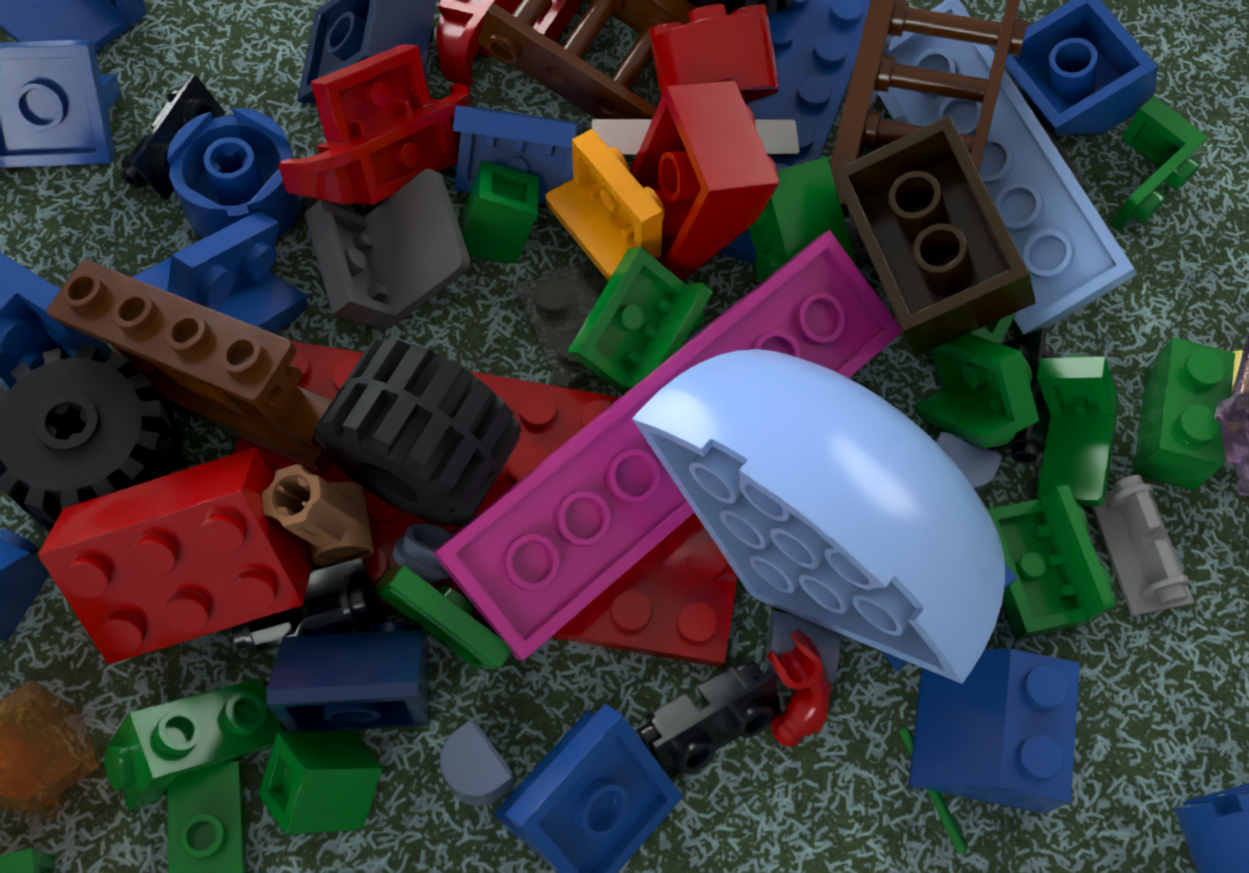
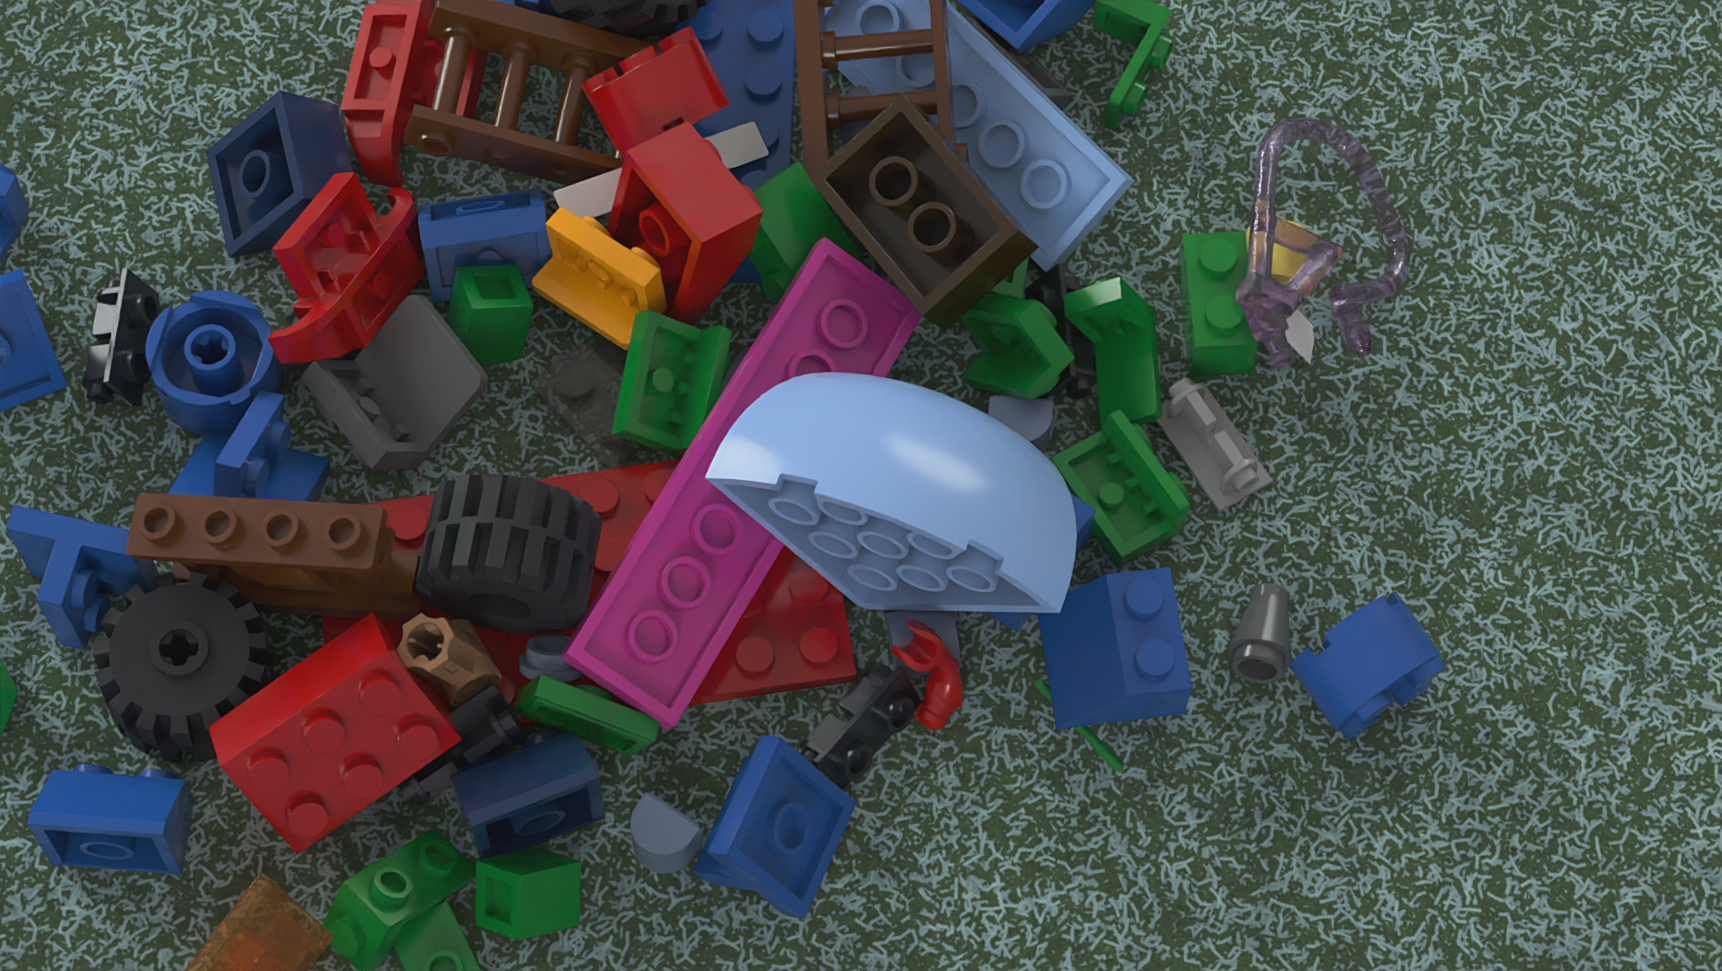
camera: 15 degrees left, 0 degrees up
(1148, 764) = (1262, 639): none -> dark grey cone

